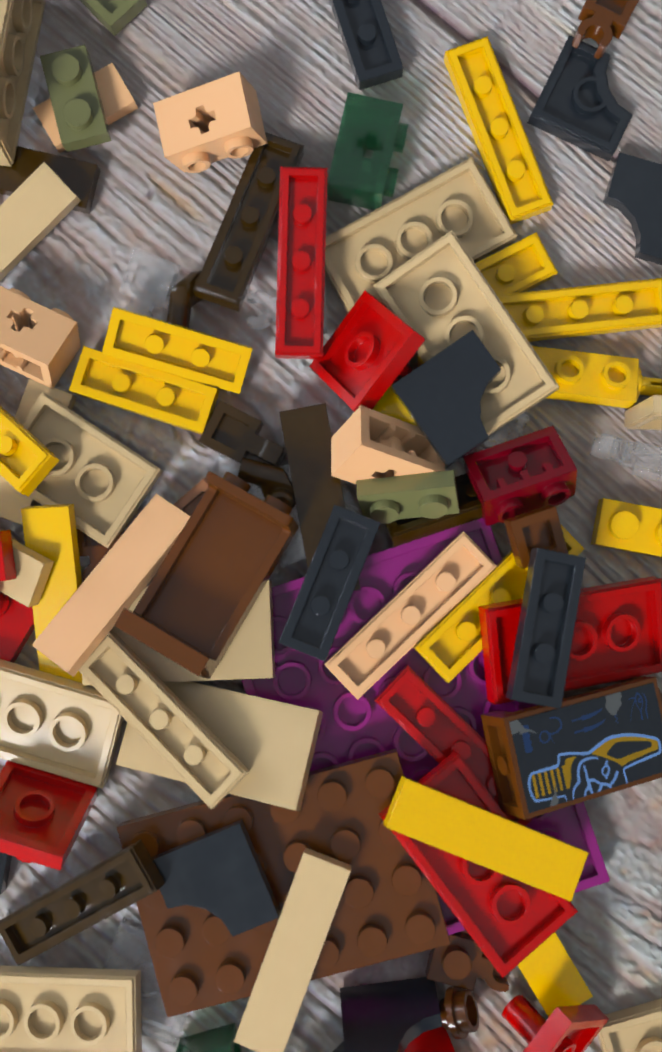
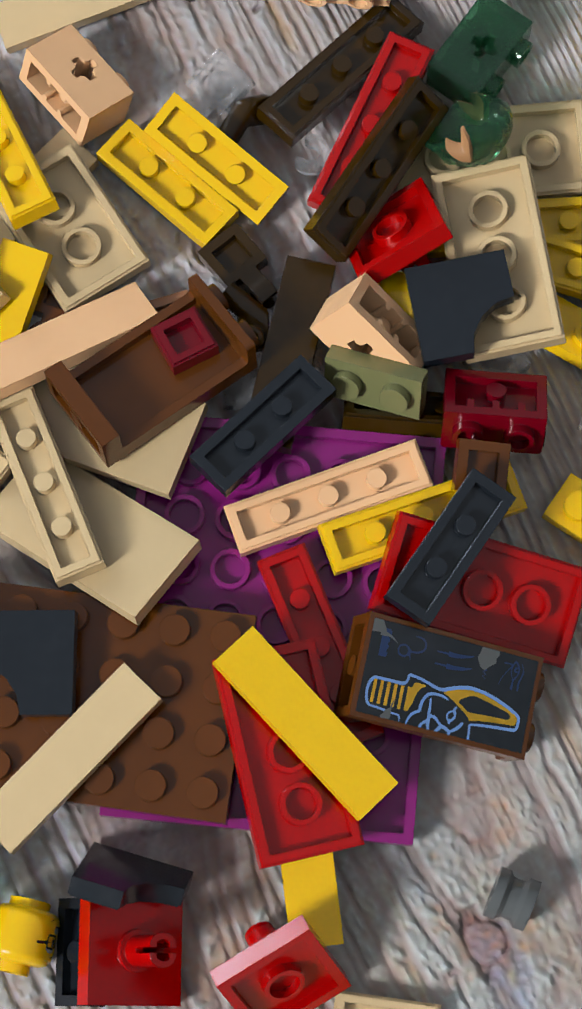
camera: 25 degrees right, 10 degrees down
(225, 533) = (184, 340): none -> dark red tile
(325, 301) = (376, 169): none -> dark brown tile
(393, 230) = (473, 132): none -> clear green hair
(459, 1012) = (203, 910): reddish brown plate -> none
(462, 964) = (227, 865): reddish brown plate -> none

